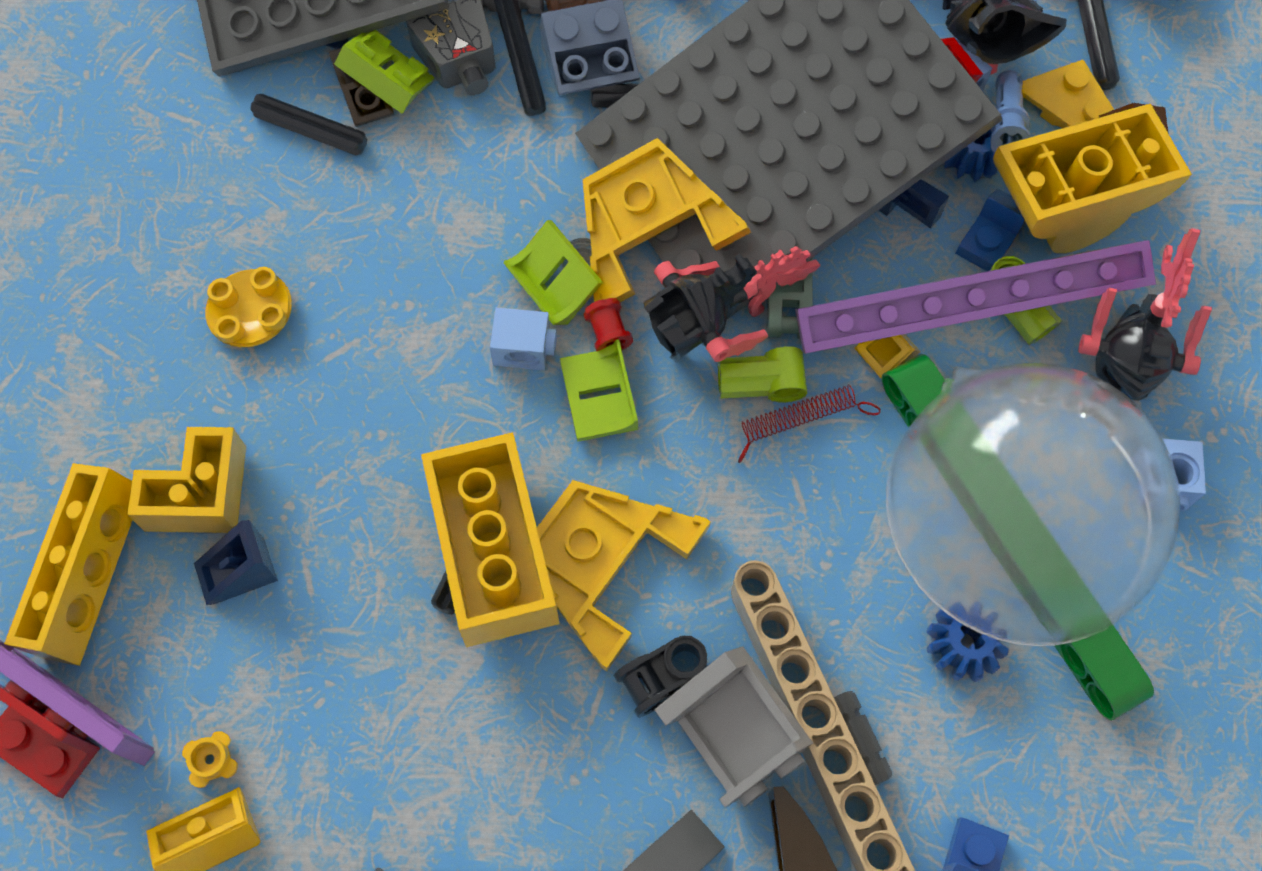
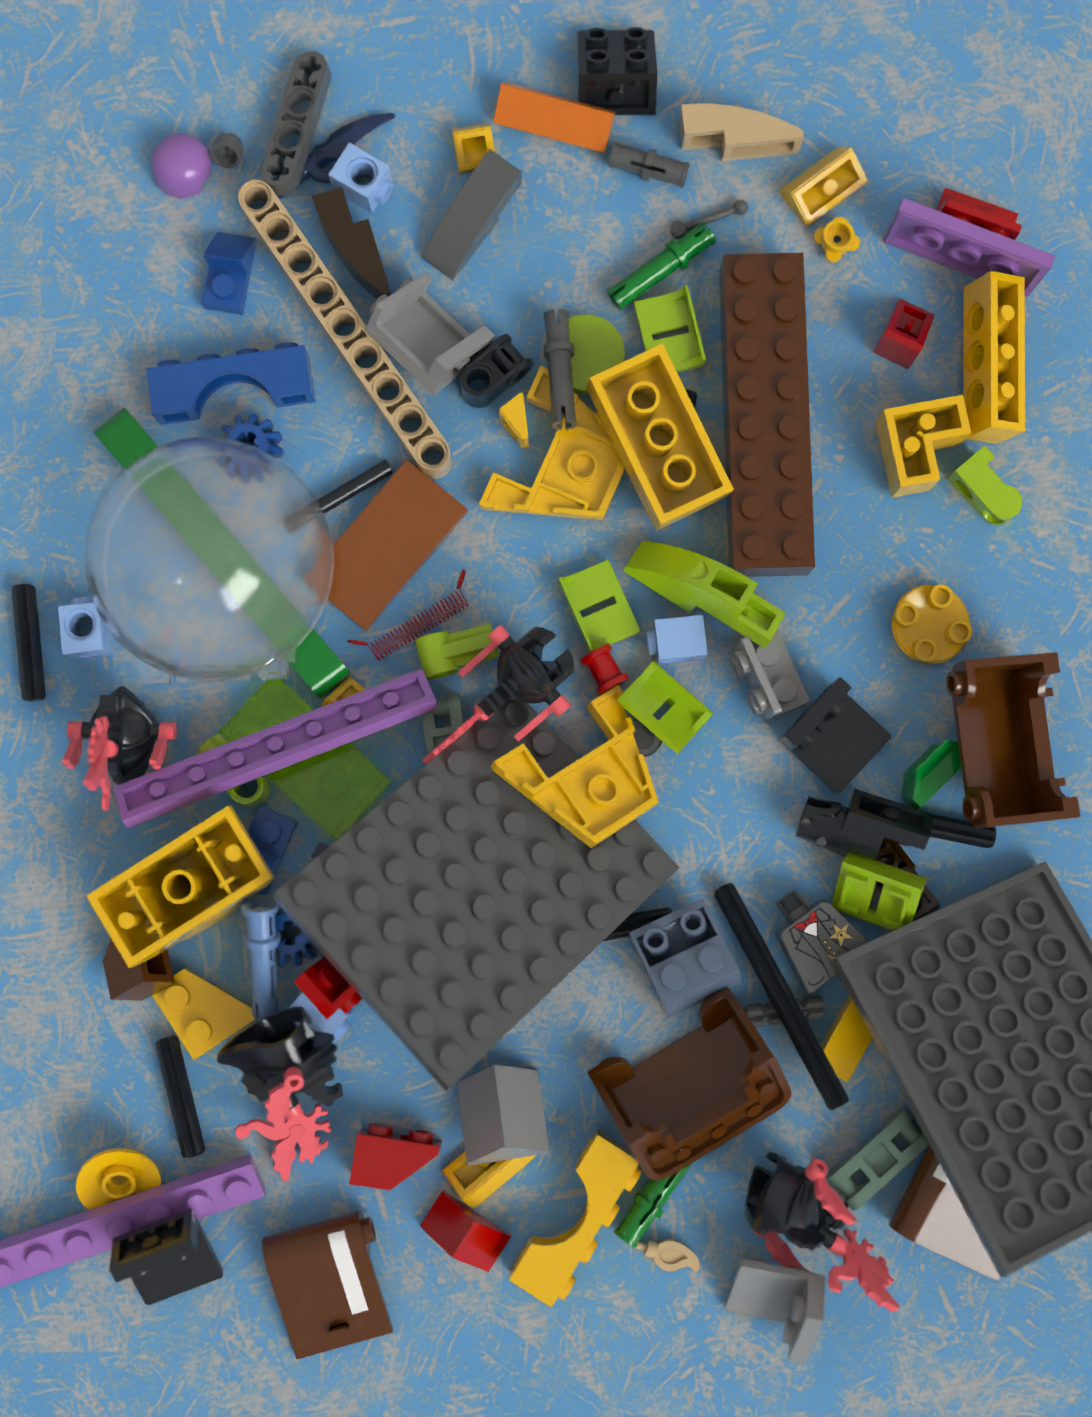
camera: 170 degrees right, 15 degrees up
(144, 434) = (985, 490): none -> lime leg
(165, 623) = (904, 334): none -> red slope
(214, 154) = (1007, 741): none -> reddish brown windscreen
(235, 564) = (864, 390): dark blue slope -> none
(291, 168) = (930, 773): none -> green slope
(355, 564) = (766, 414): none -> reddish brown brick
(379, 124) = (863, 824): none -> black plate
(385, 220) = (835, 737): none -> black bracket
(397, 816) = (679, 228): none -> dark grey hinge
(431, 767) = (674, 257): none -> green pin
(436, 287) = (769, 676): none -> light grey bracket
(447, 705) = (669, 314): none -> lime piece
(480, 380) = (700, 581): none -> lime slope
(549, 679) = (595, 348): none -> lime tile
(585, 652) = (559, 354): none -> dark grey pin
(651, 611) = (513, 418): none -> yellow slope
(816, 506) = (390, 543): none -> dark orange tile
(852, 577) = (355, 486): none -> black bar
(863, 737) = (327, 357): dark grey axle -> none
(918, 259) = (328, 786): none -> clear neon green tile
(1045, 727) = (182, 389): none -> blue arch
(1236, 479) = (28, 642): none -> black axle

